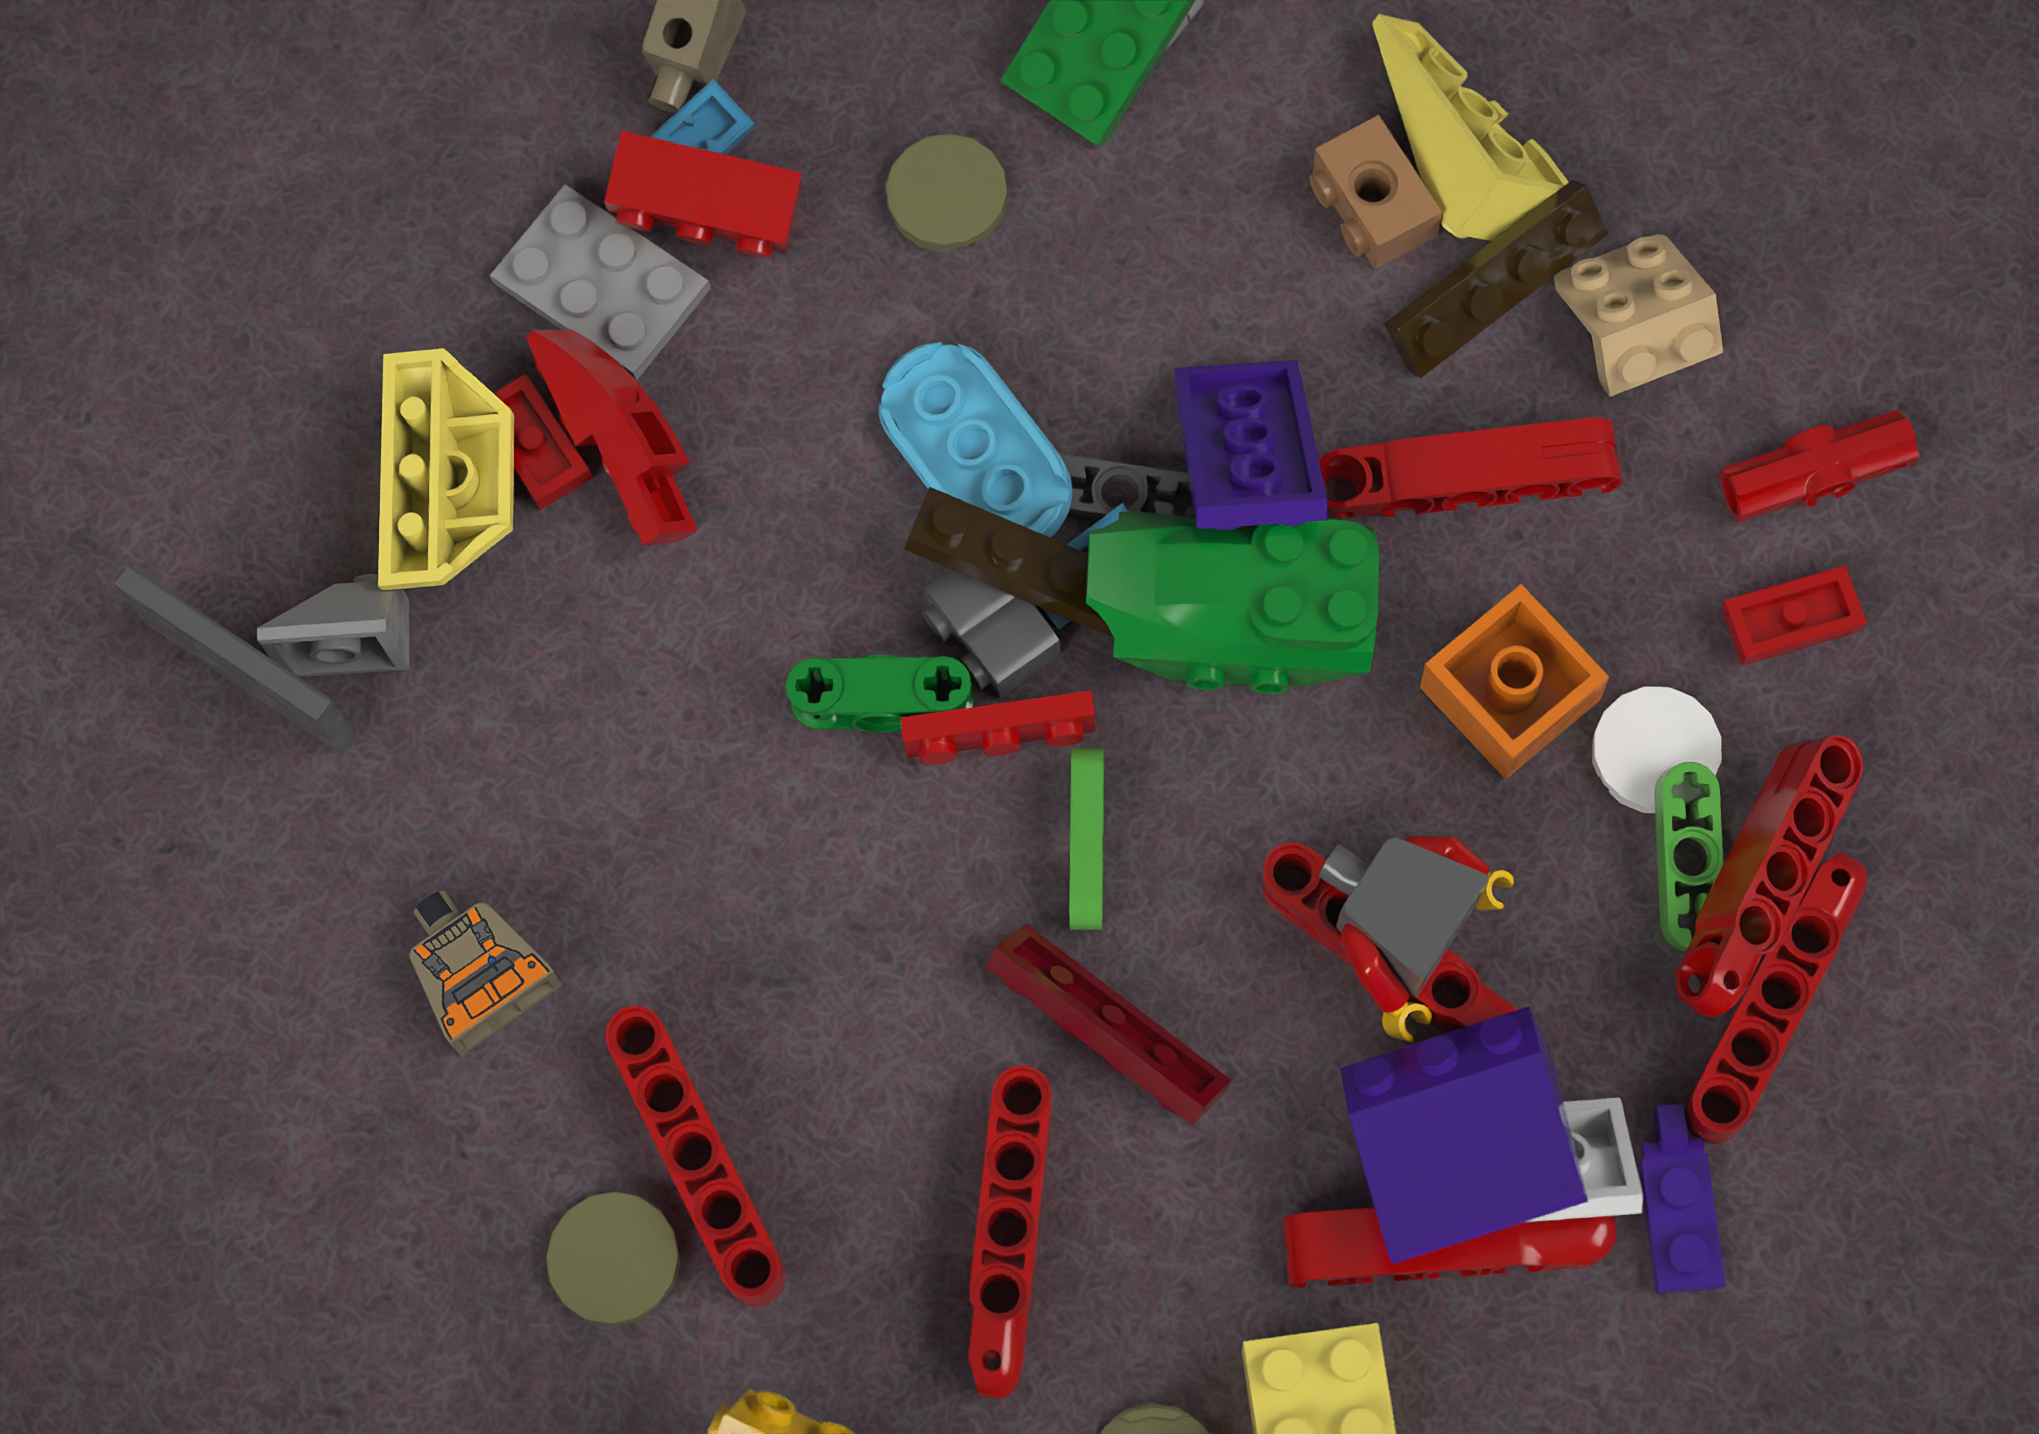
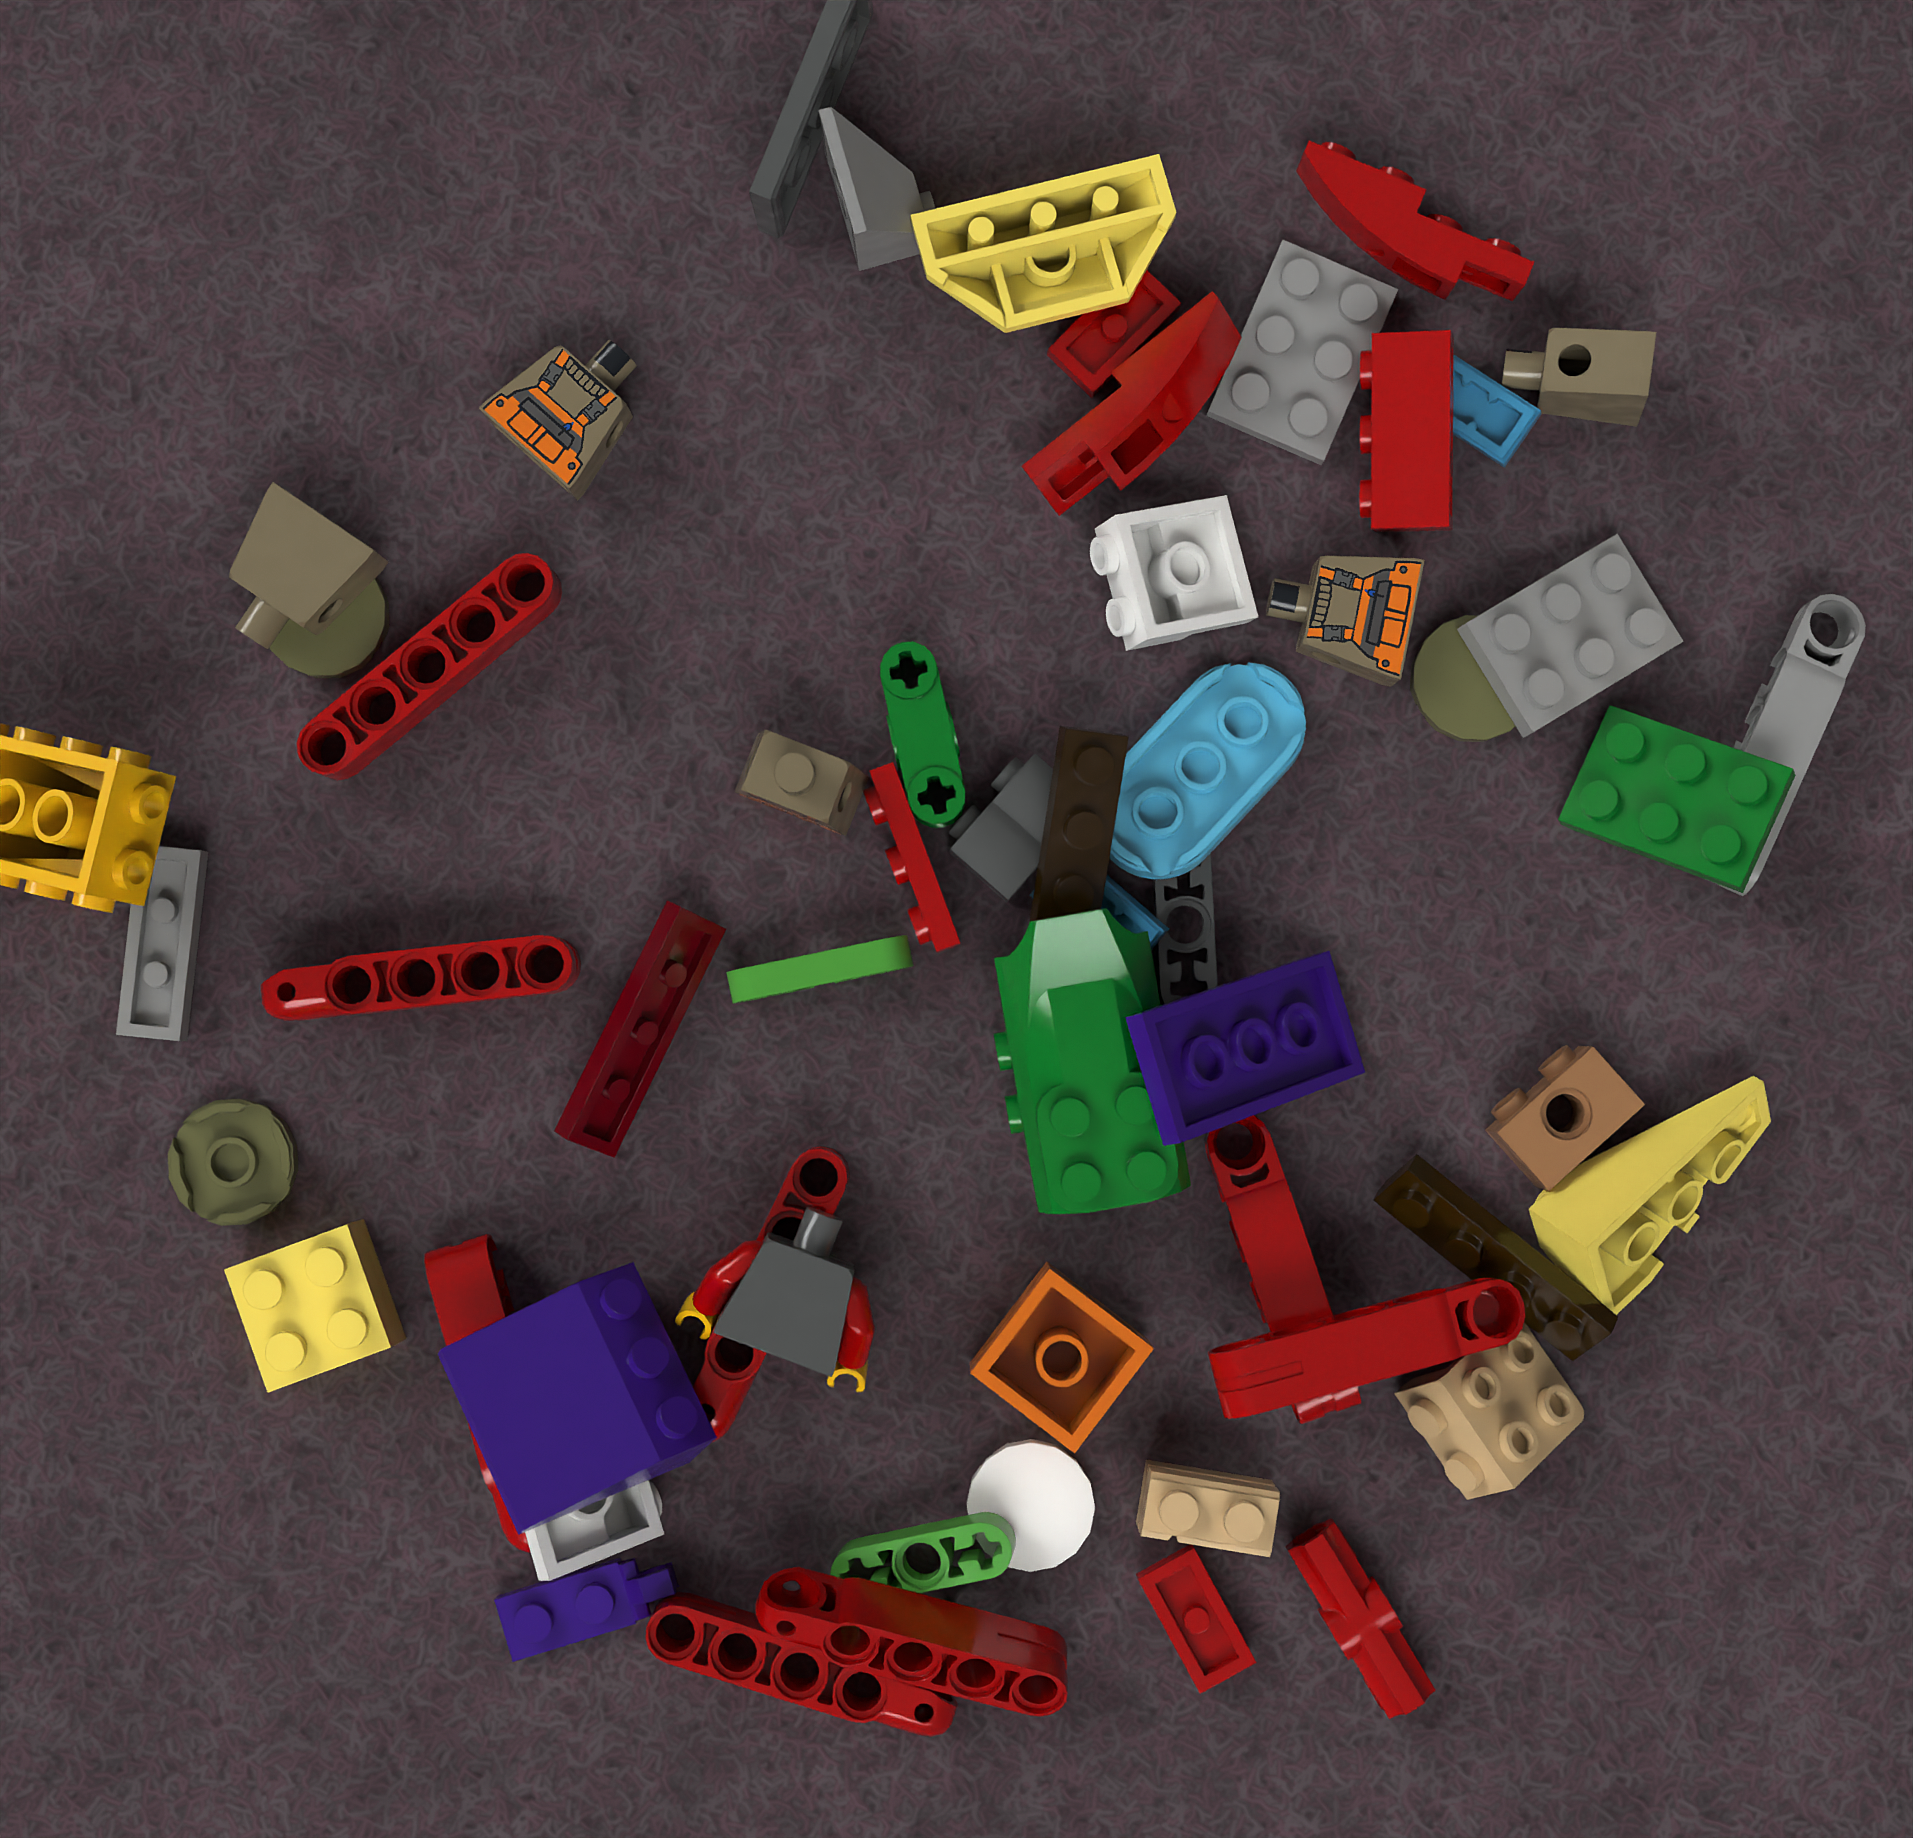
camera: 70 degrees right, 15 degrees up
(497, 180) = (1382, 219): none -> red slope
(562, 1258) = (298, 568): none -> dark tan torso
(780, 433) = (1173, 572): none -> white plate
(860, 280) = (1353, 613): none -> torso
(896, 816) = (802, 781): none -> dark tan torso
(927, 100) = (1569, 635): none -> light grey plate
(1555, 397) = (1365, 1345): none -> red piece
(1687, 579) = (1208, 1508): none -> tan brick

